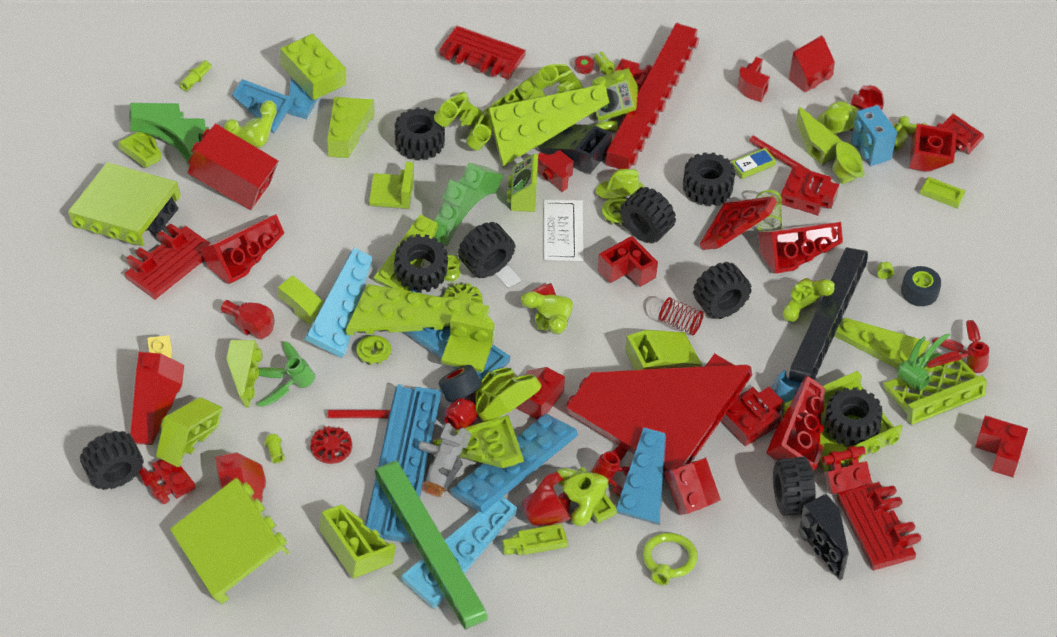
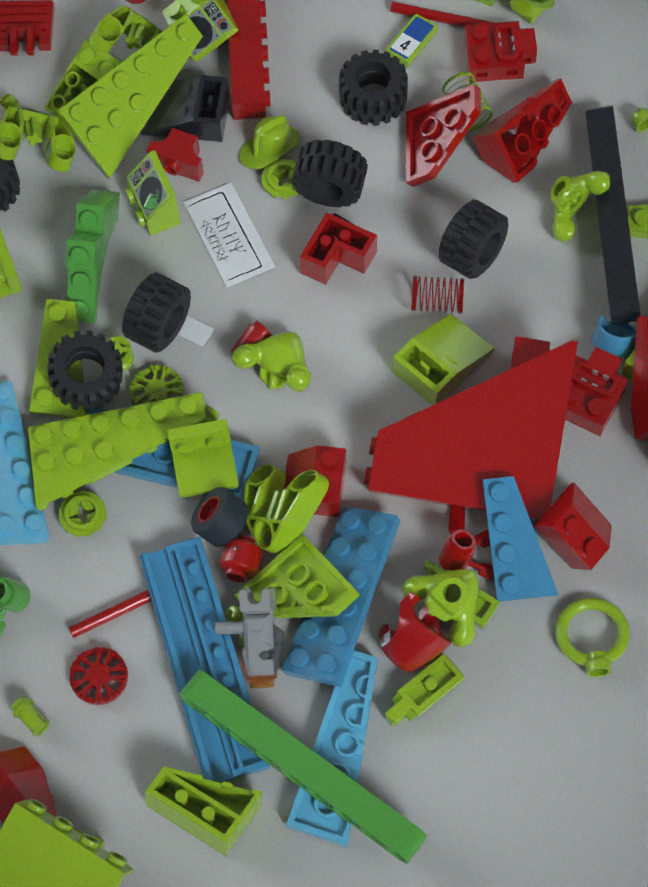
camera: 20 degrees left, 15 degrees up
(608, 125) = (208, 65): lime arm -> none

